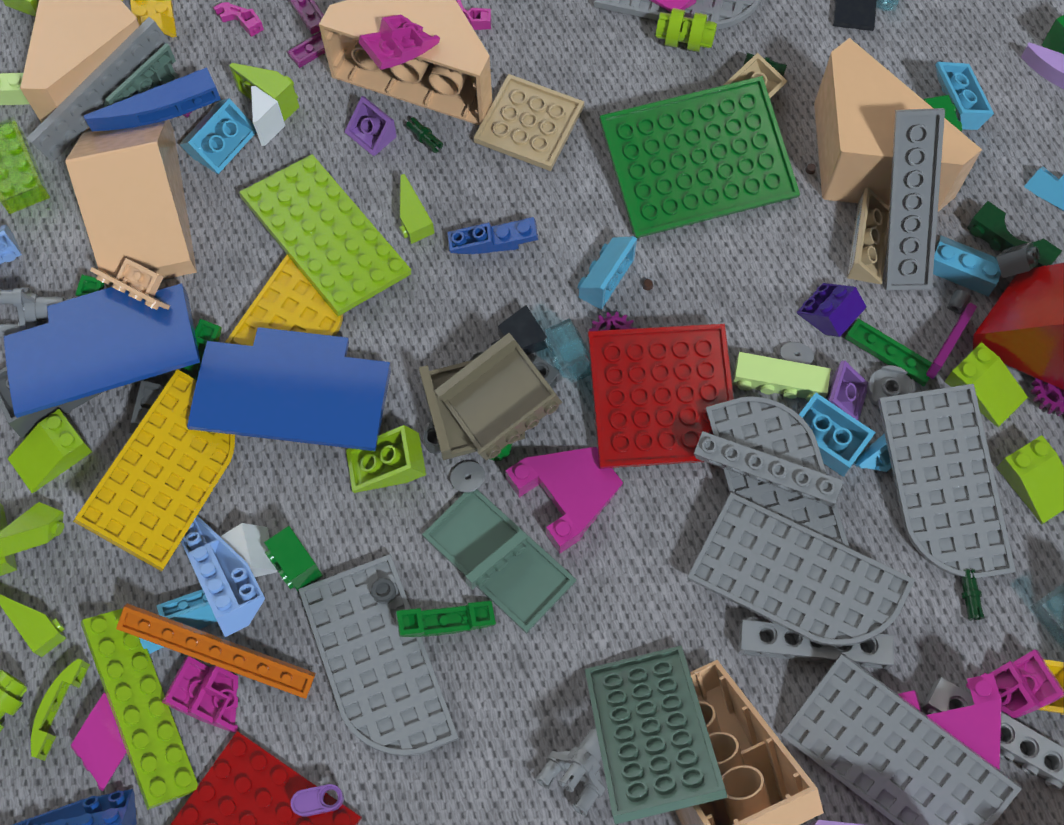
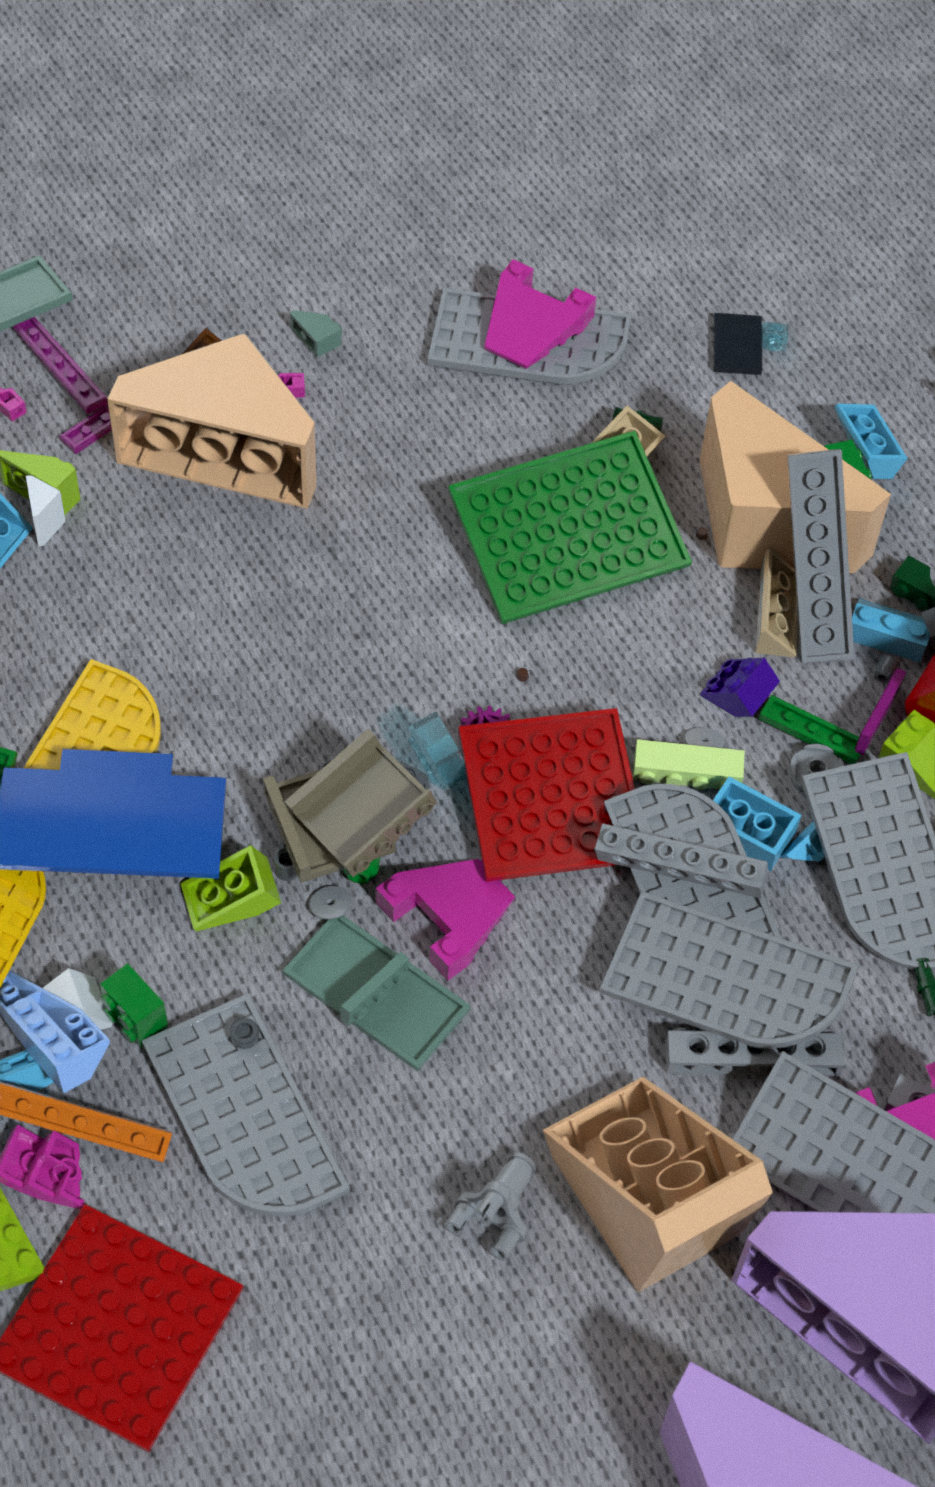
camera: 10 degrees left, 10 degrees down
(311, 800) = (183, 1268): medium lavender piece -> none
(325, 234) = (129, 641): lime plate -> none
(371, 127) = (172, 516): medium lavender slope -> none
(397, 42) = (204, 413): dark pink slope -> none
(413, 216) = (237, 617): lime slope -> none
(424, 135) = (238, 522): dark green pin -> none
(445, 620) = (321, 1062): green slope -> none
(489, 238) = (328, 635): blue slope -> none
(524, 330) = (386, 730): black torso -> none
(529, 122) = (363, 500): tan plate -> none
(607, 271) = (474, 661): medium azure slope -> none
(652, 736) = (576, 1146): sand green plate -> none
(677, 28) = (522, 381): lime piece -> none
(848, 390) = (767, 772): medium lavender slope -> none

